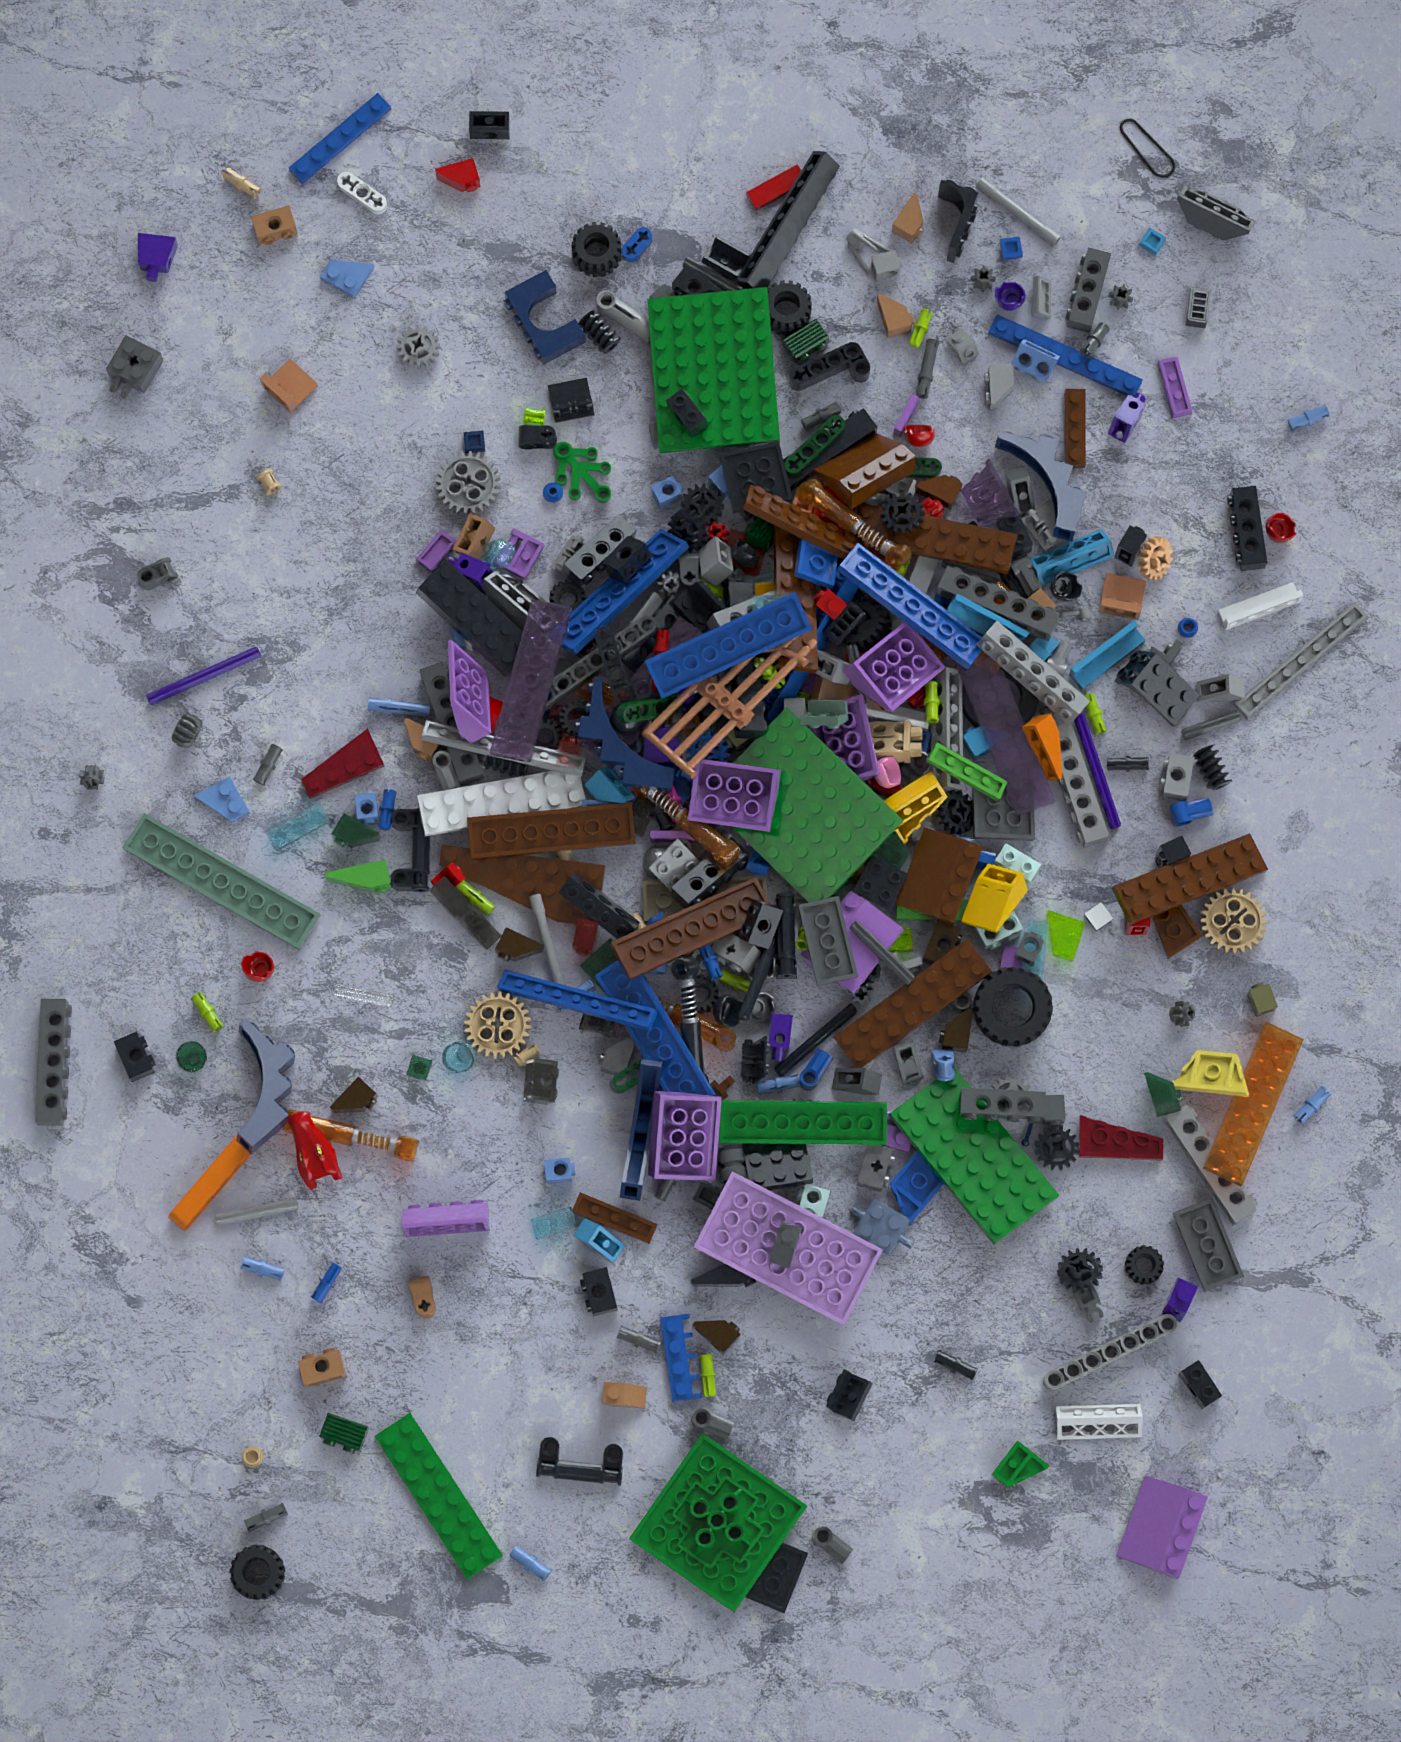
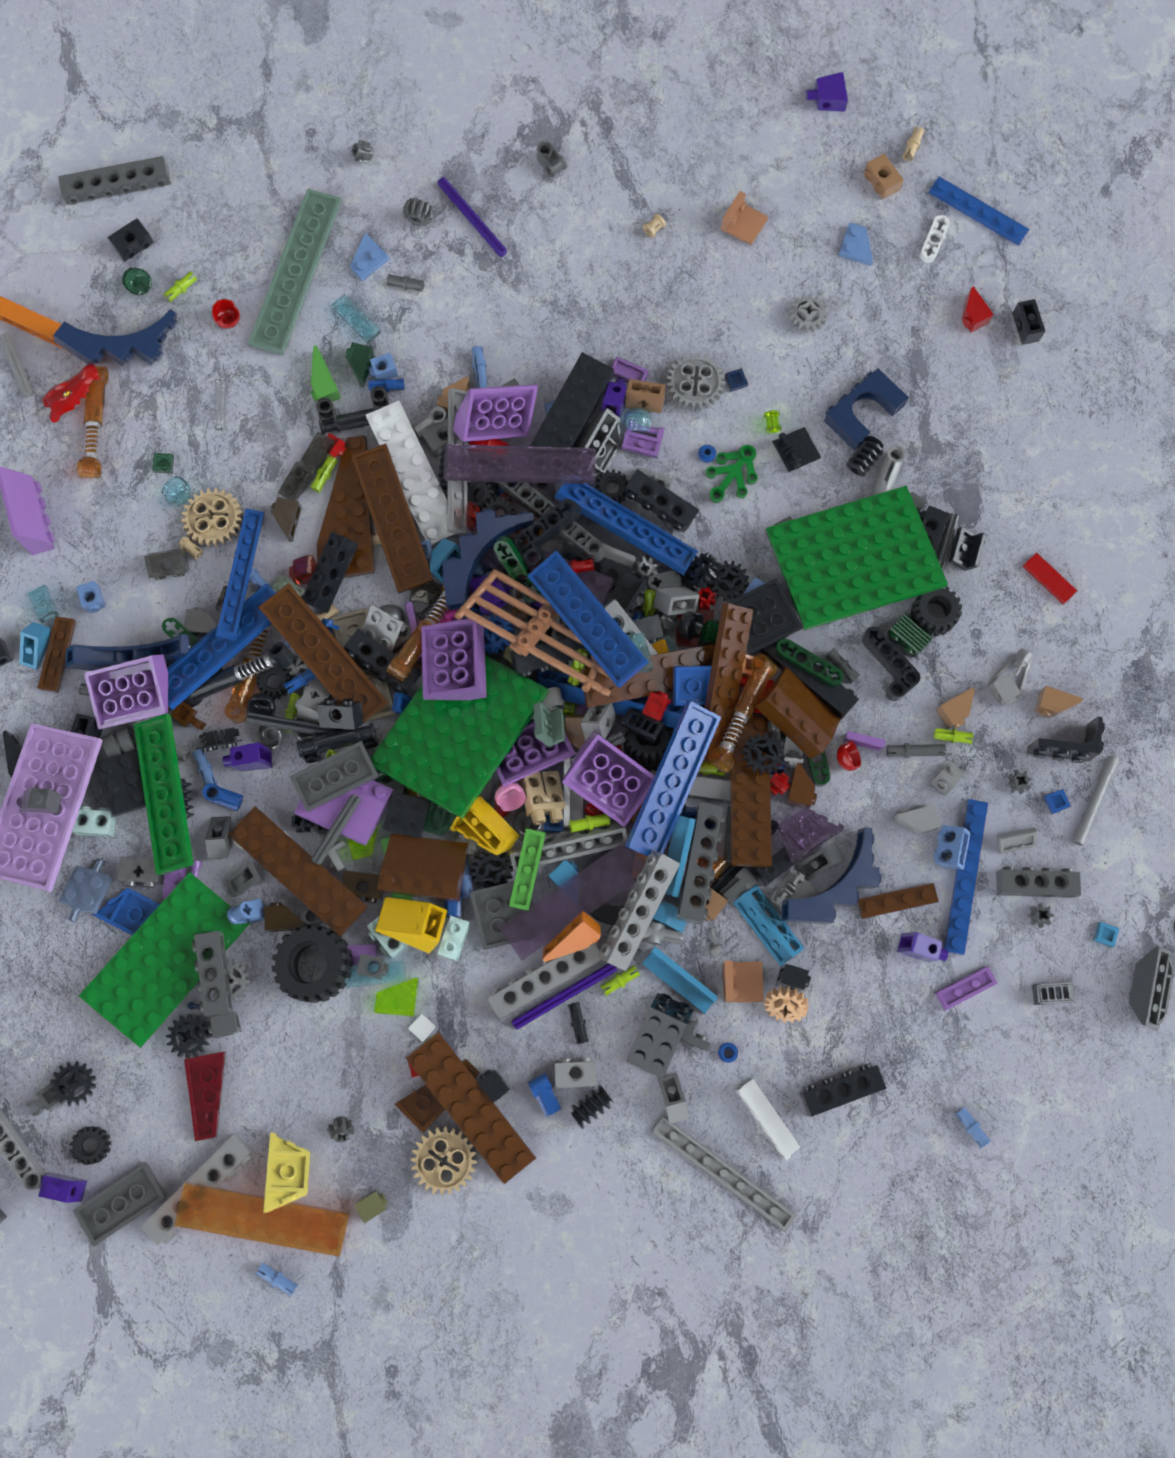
camera: 75 degrees right, 0 degrees up
(136, 376) = (724, 98): dark grey hinge -> none
(345, 765) = (422, 347): dark red wing -> none
(355, 1098) = (126, 418): dark brown slope -> none
(534, 437) = (753, 428): black piece -> none
(539, 913) = (318, 527): light grey piece -> none
(591, 235) = (948, 424): black tyre -> none
(626, 559) = (657, 523): black brick -> none
(633, 242) = (957, 471): blue beam -> none
(665, 500) = (732, 539): medium blue brick -> none
(686, 413) = (804, 538): black brick -> none
(788, 221) = (1019, 594): black brick -> none
(815, 1040) = (252, 792): black axle -> none
(1010, 296) = (1009, 810): dark purple hair -> none
(1065, 586) = (737, 925): black hair -> none
(1094, 340) = (989, 899): dark grey pin -> none
(1163, 1095) = (253, 1126): clear green slope -> none
(1211, 725) = (636, 1096): dark grey axle -> none
(1280, 528) = (851, 1123): red hair -> none

